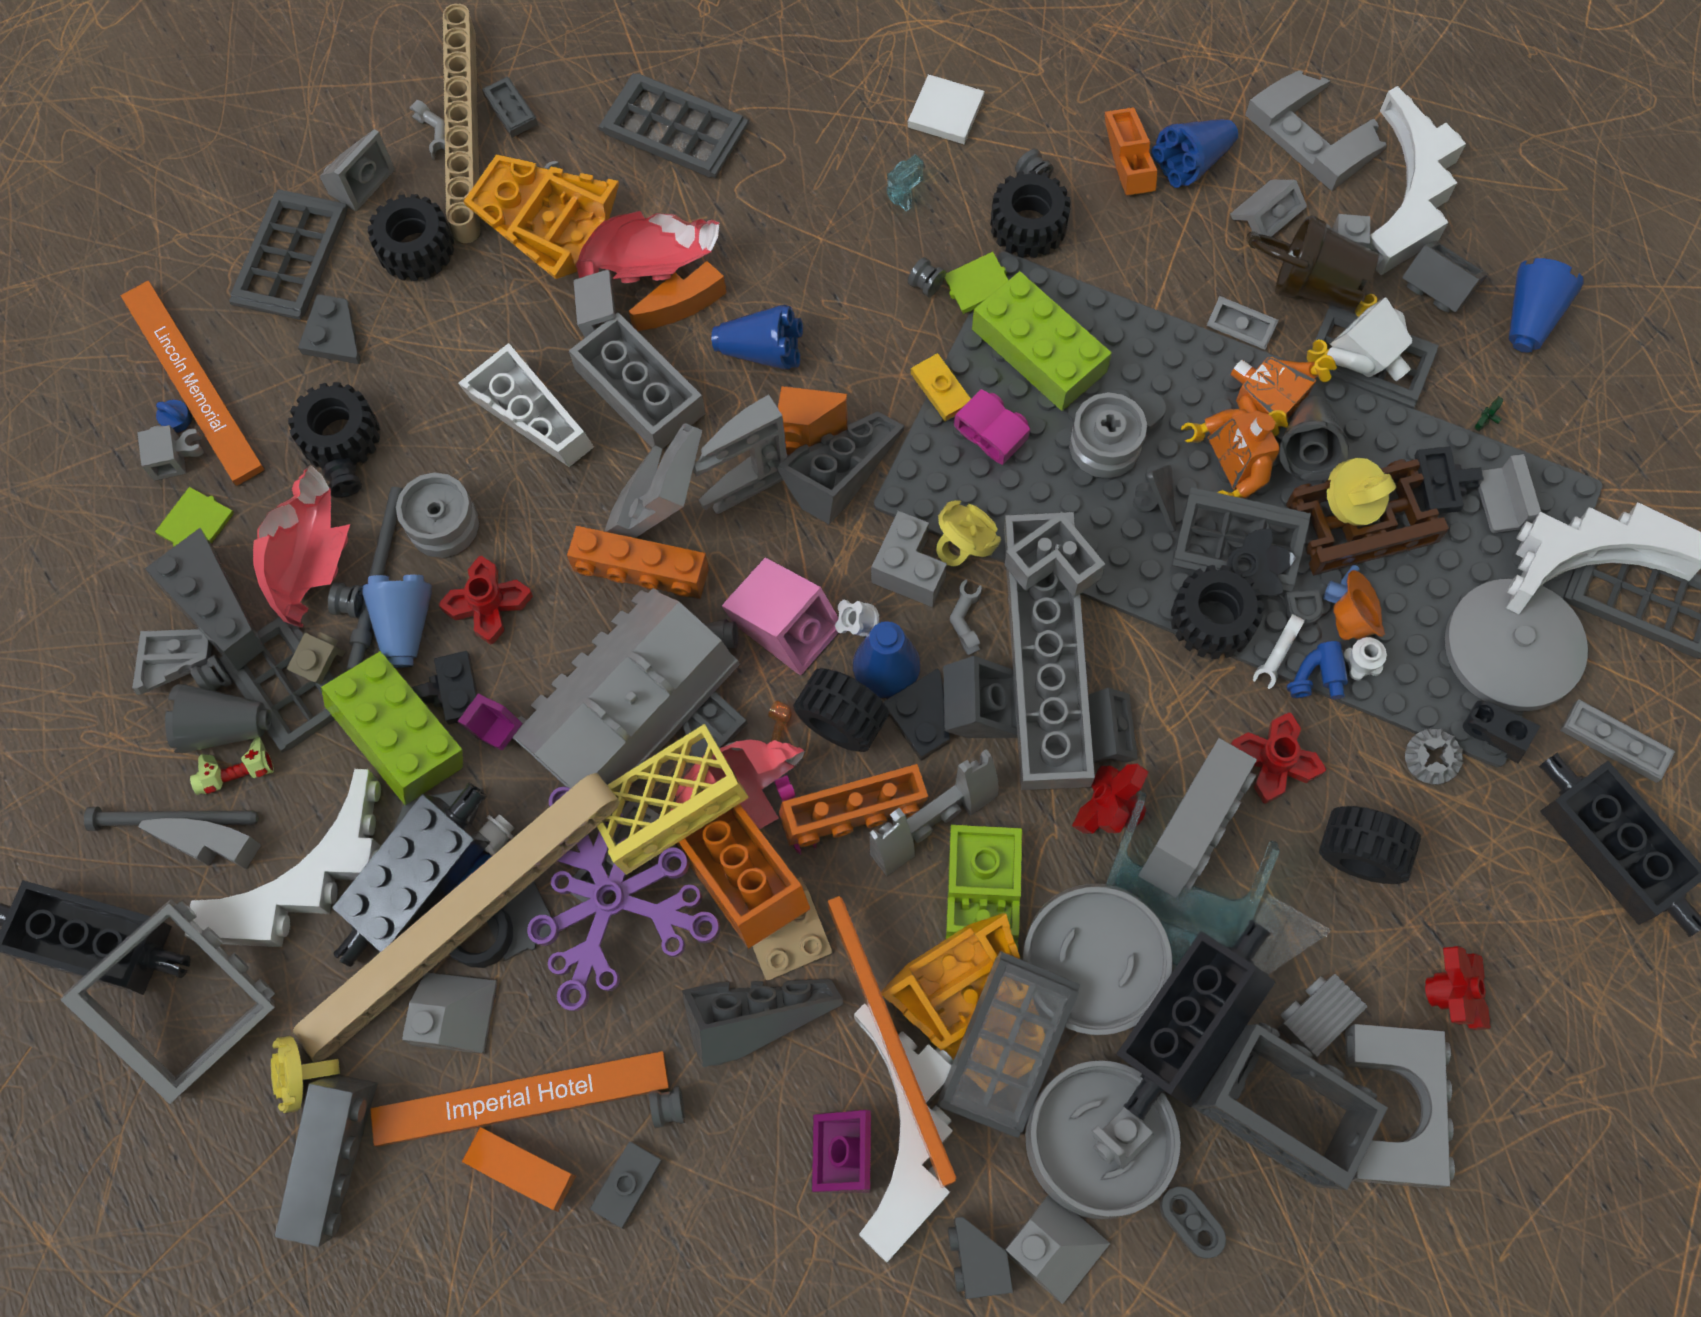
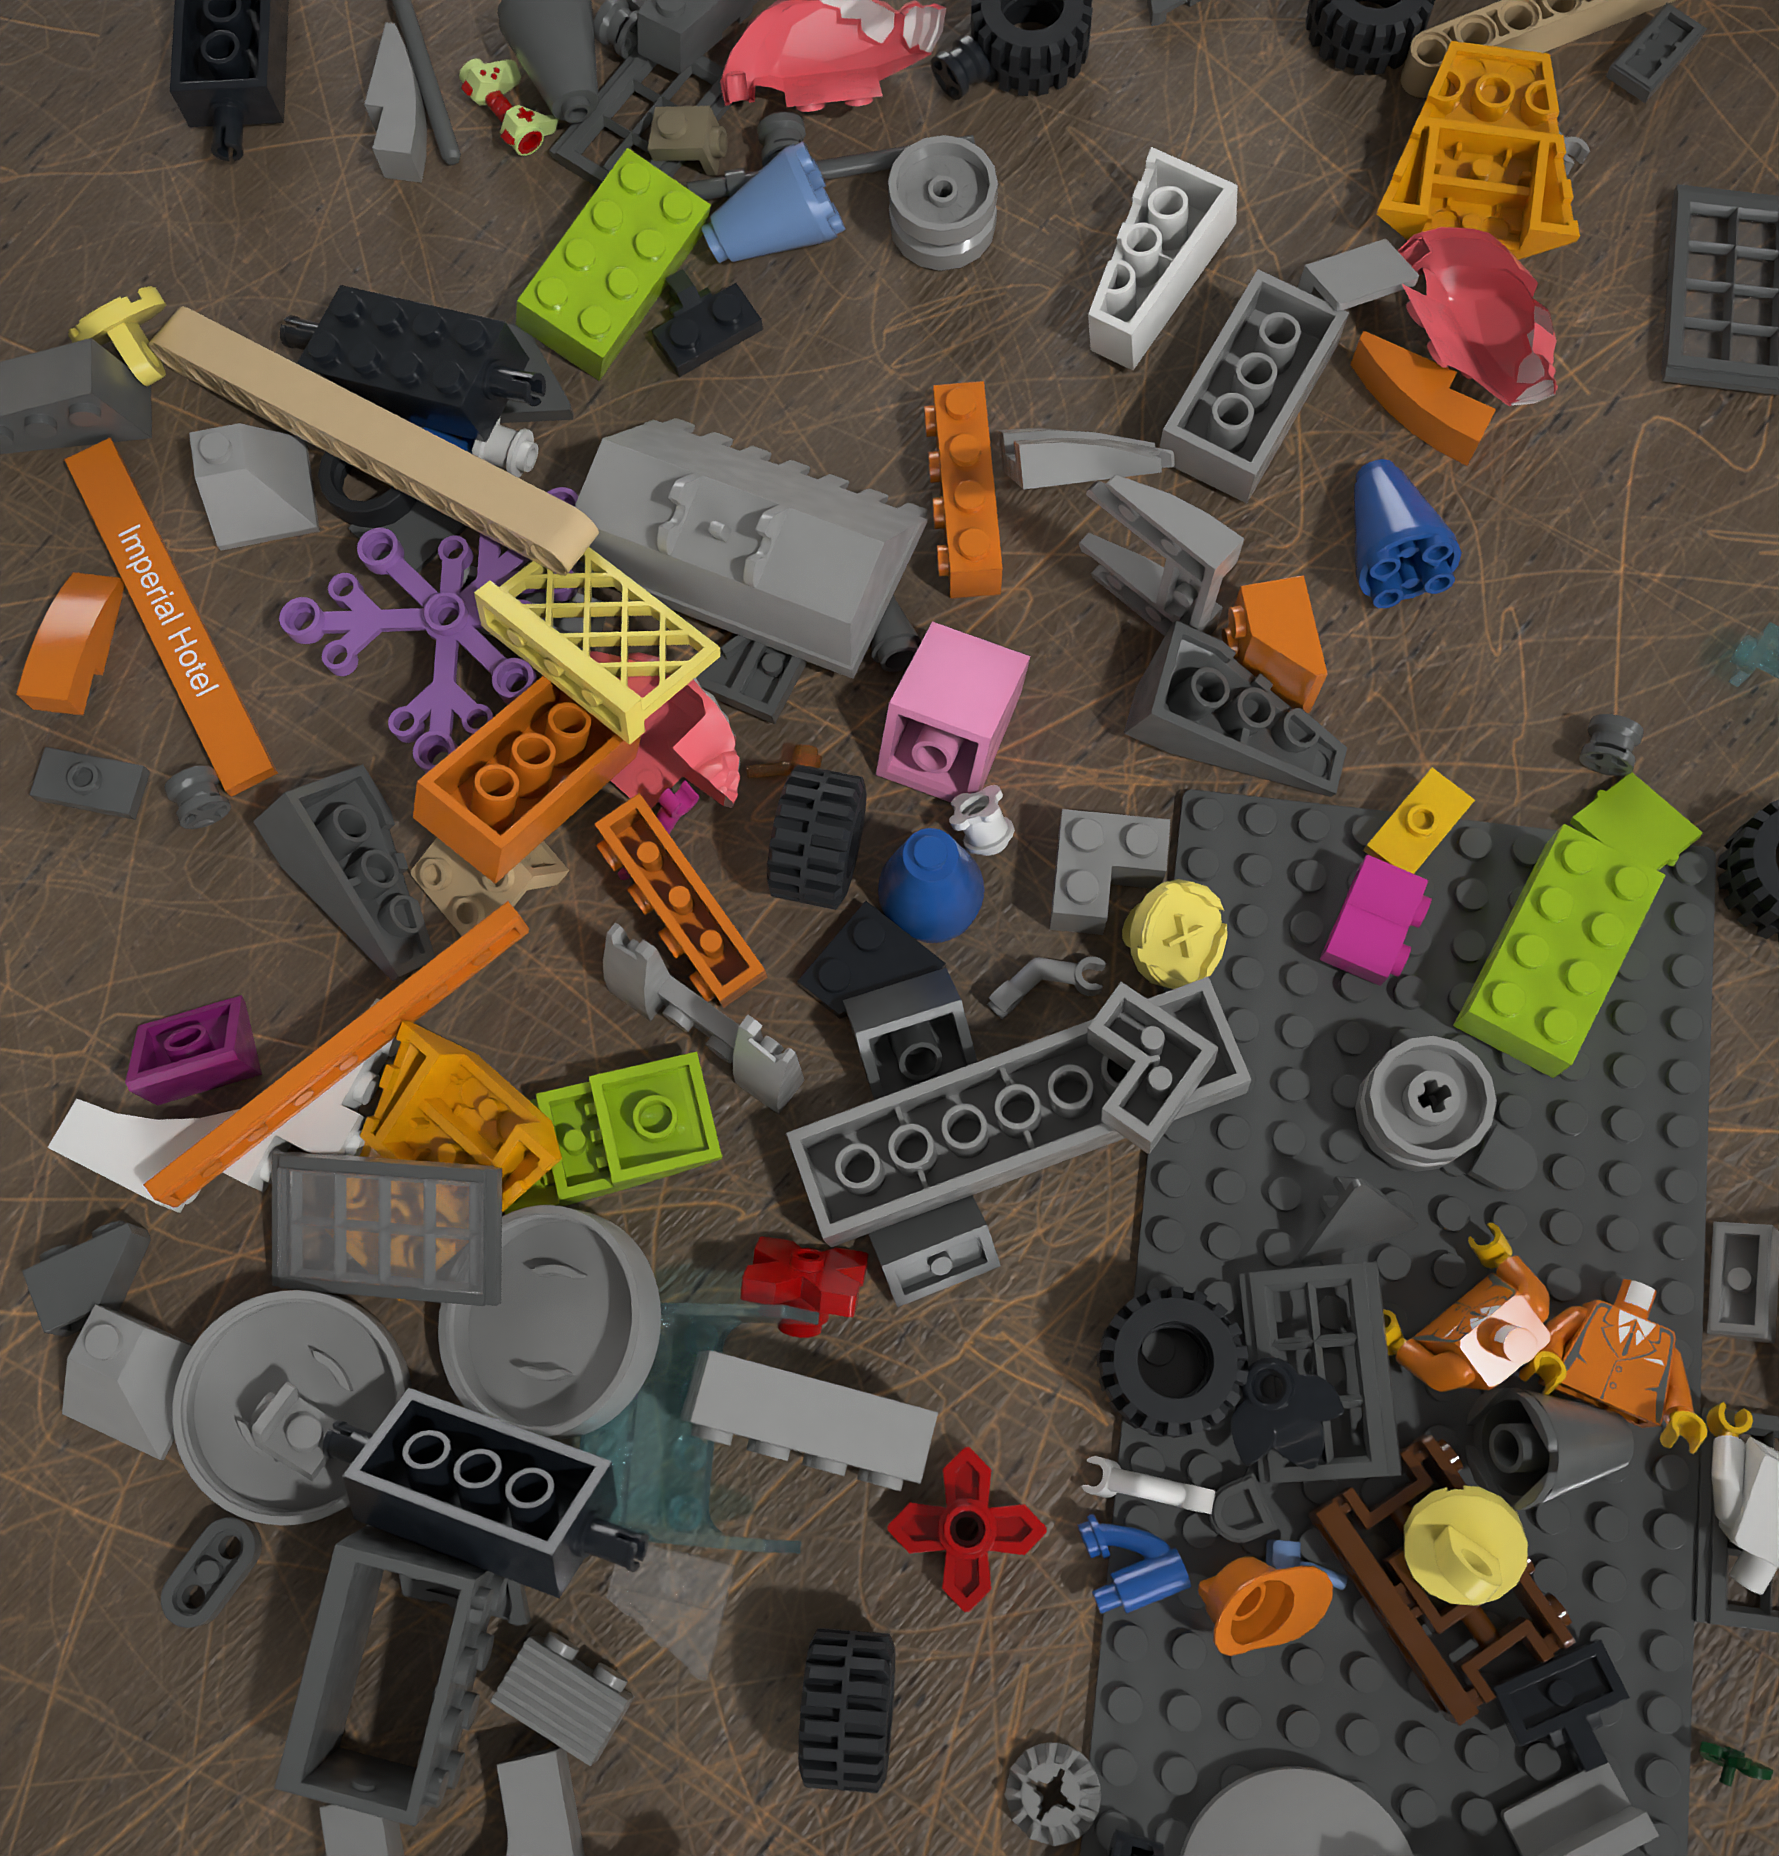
camera: 75 degrees right, 5 degrees up
(127, 1046) = (101, 124): light grey window -> none
(310, 886) = (372, 254): white arch -> none
(485, 599) = (844, 314): red plant -> none
(490, 722) = (664, 383): magenta panel -> none
(1360, 663) = (1161, 1628): white brick -> none

